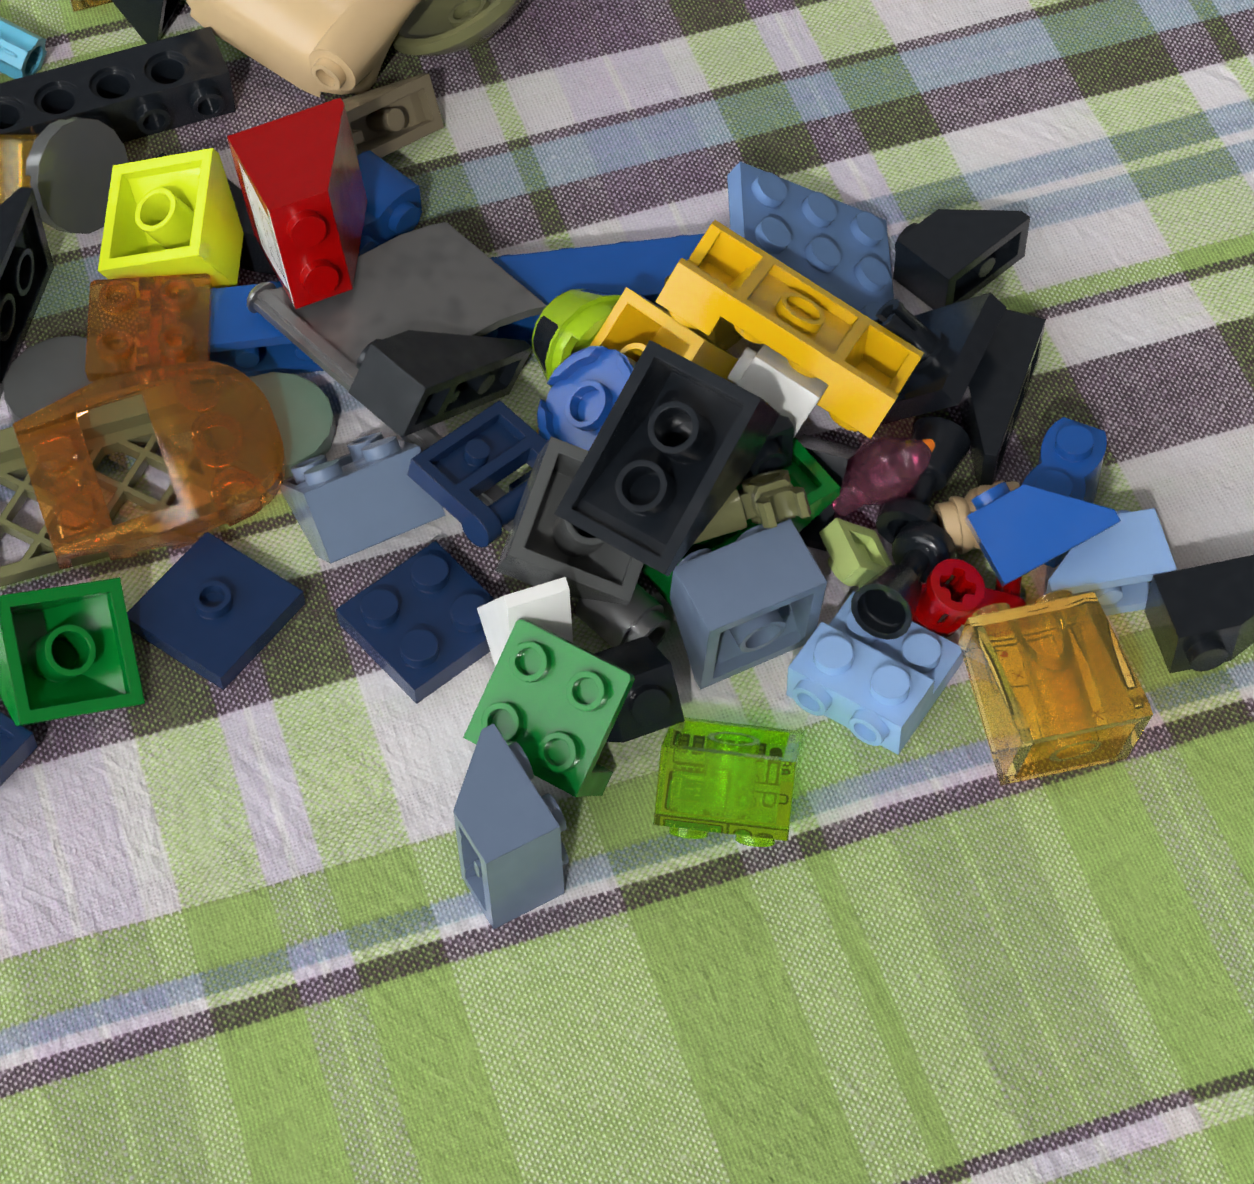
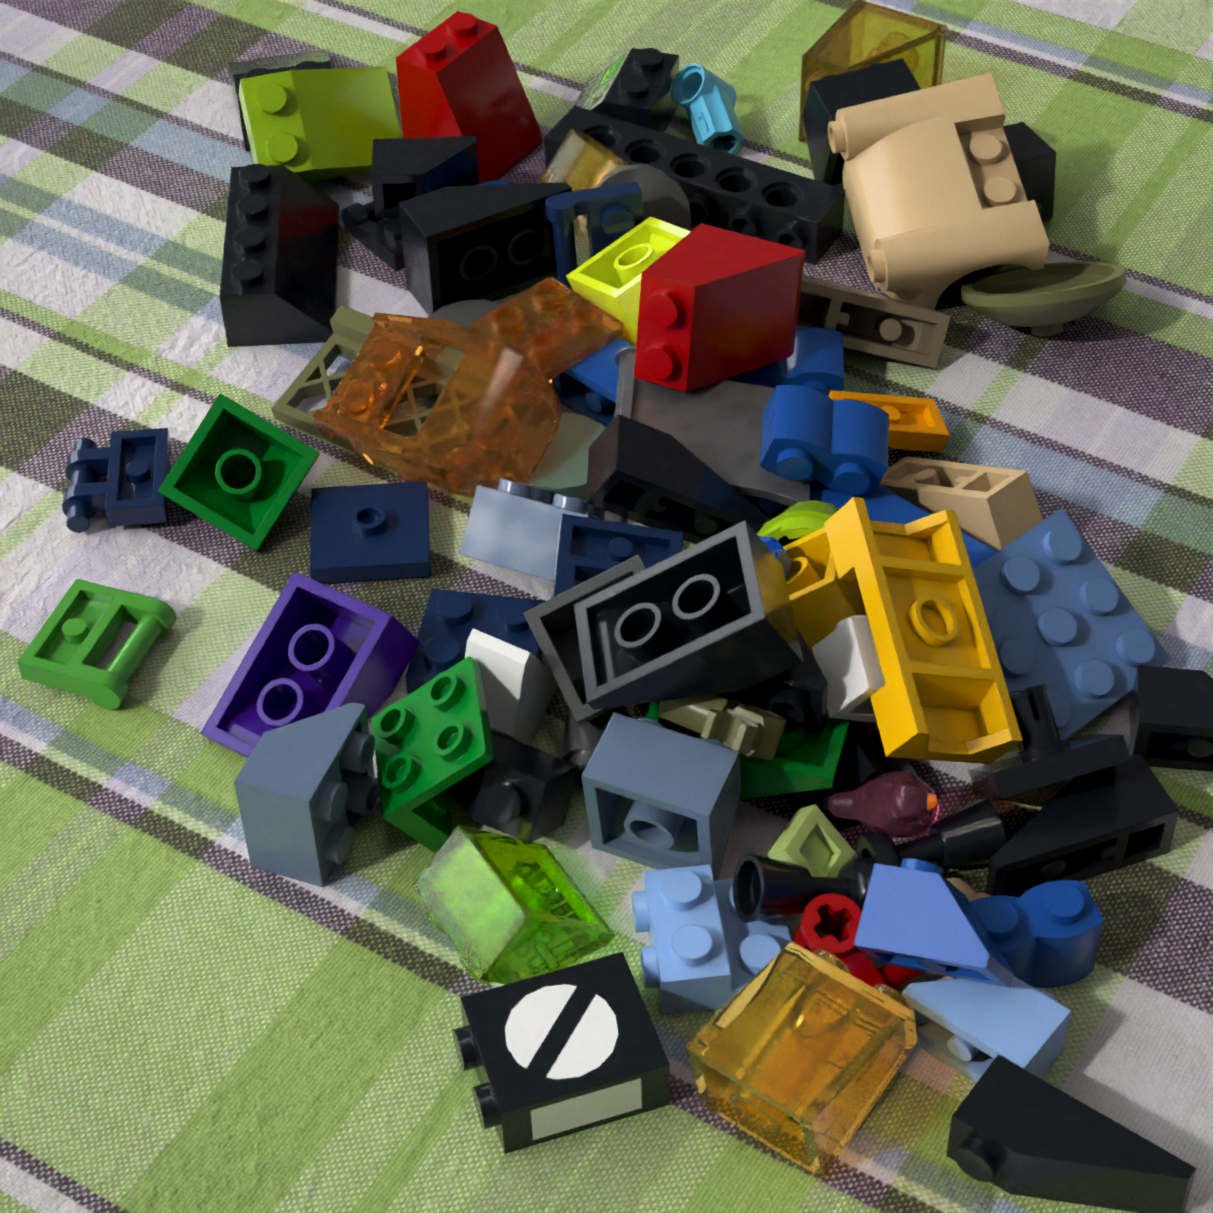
camera: 50 degrees right, 10 degrees down
(78, 199) = (609, 213): none -> dark blue plate
(118, 895) = (80, 633): none -> bright green plate
(356, 760) = (308, 659): none -> dark purple slope
(485, 196) = (913, 421): none -> light orange plate
(510, 244) = (824, 440): none -> blue brick
(631, 206) = (989, 501): none -> tan slope
(894, 834) = (562, 1053): none -> black brick

